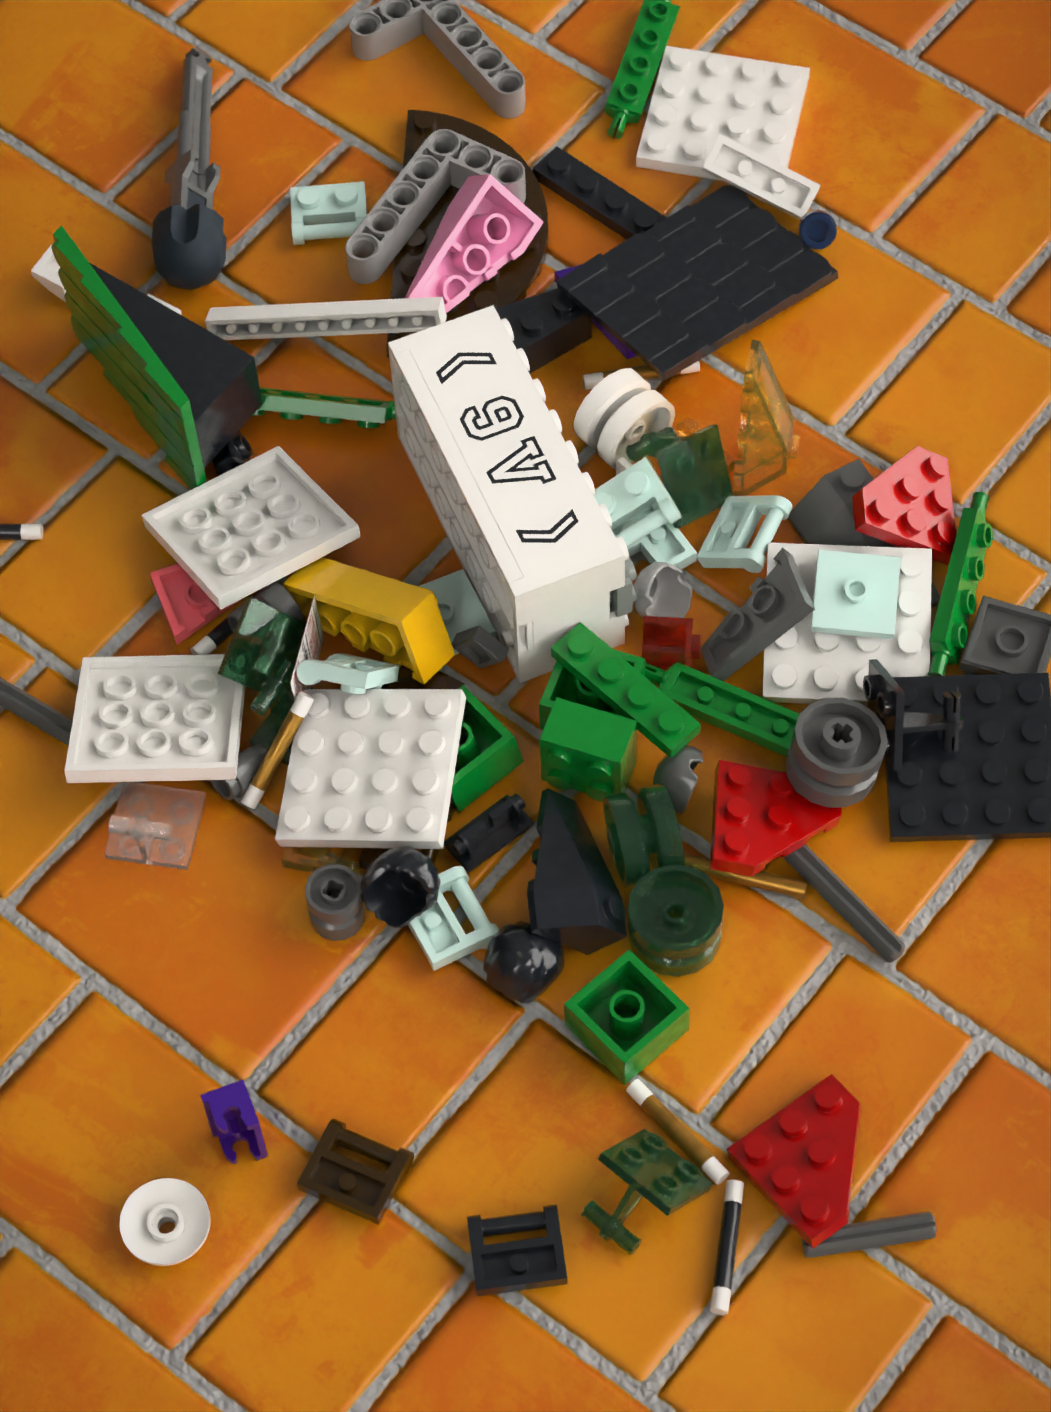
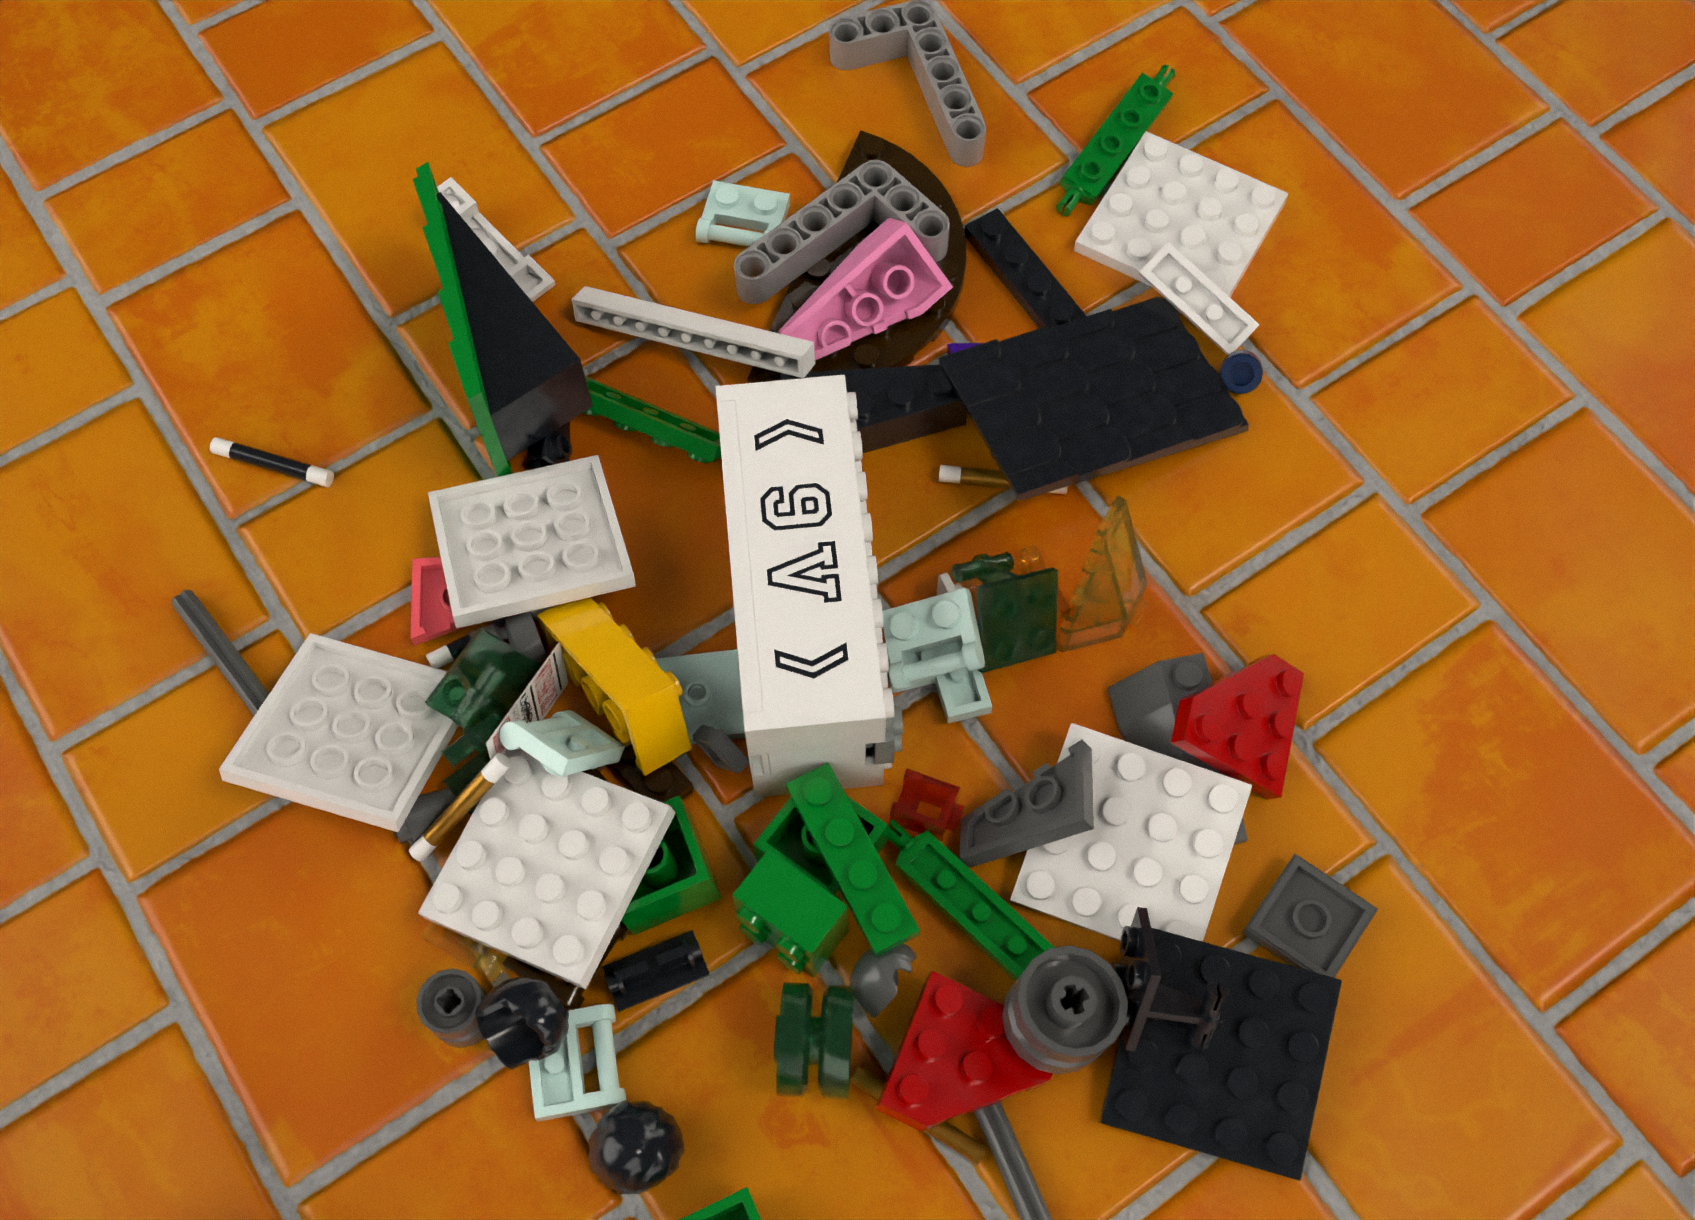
camera: 15 degrees right, 5 degrees up
(155, 825) = (308, 852): clear plate -> none
(189, 233) = (586, 204): piece -> none
(572, 889) = (718, 1080): black wedge -> none
(620, 413) = (960, 524): white wheel -> none
(662, 591) = (937, 744): light grey hair -> none
(675, 920) = (825, 1187): clear green wheel -> none
(734, 527) = (1043, 690): light aqua plate -> none
(856, 594) = (1149, 817): light aqua plate -> none
(960, 586) = (1268, 842): green plate -> none

